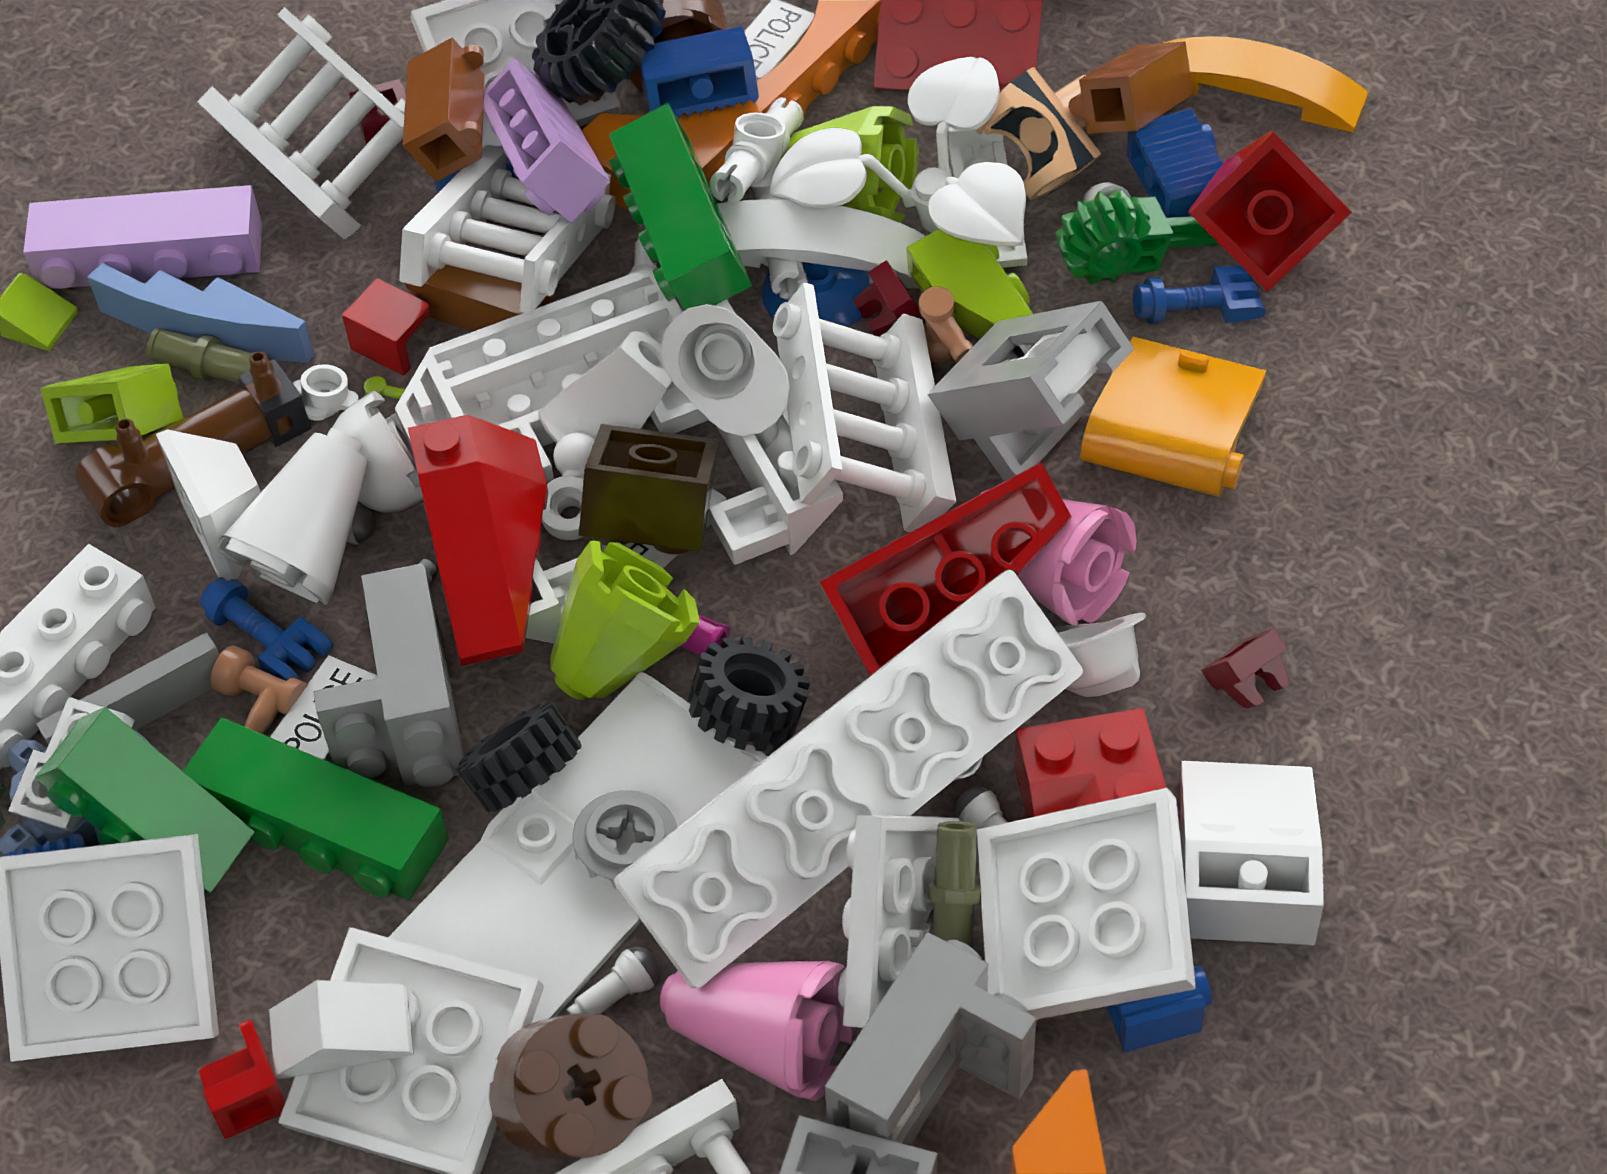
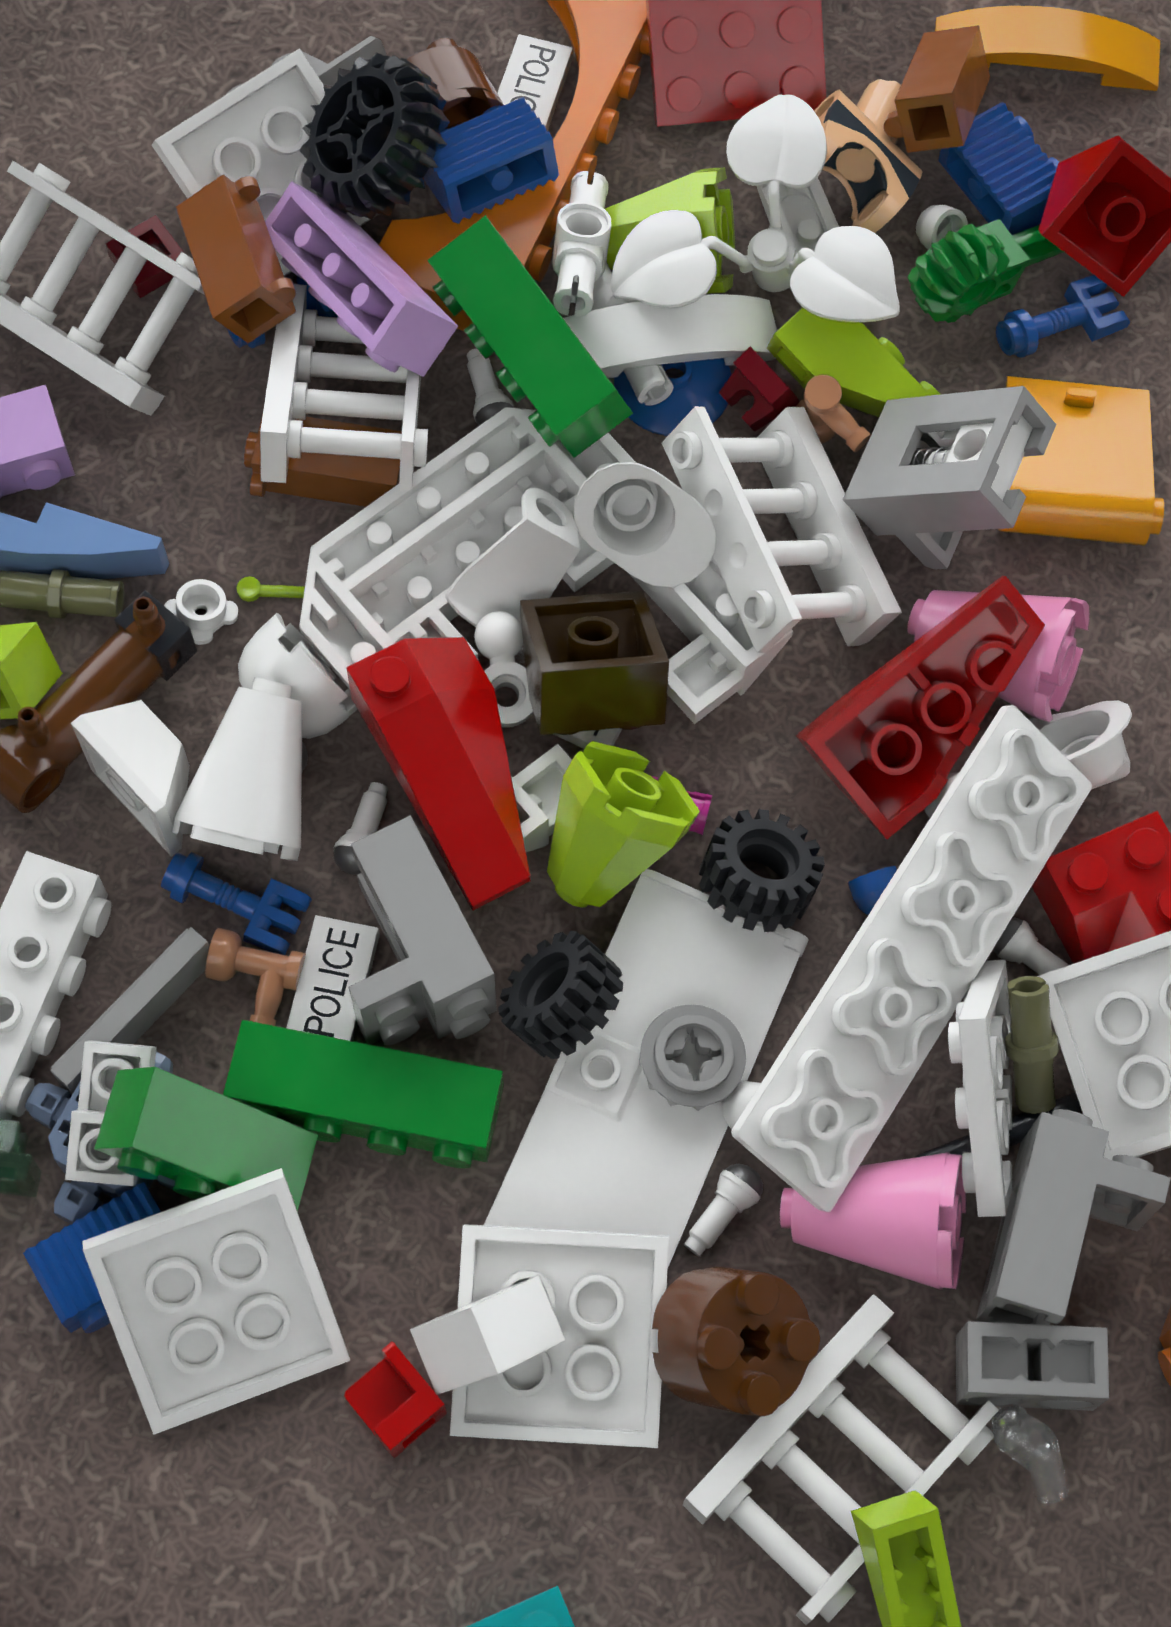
camera: 20 degrees left, 15 degrees up
(382, 322) = (243, 518): panel -> none

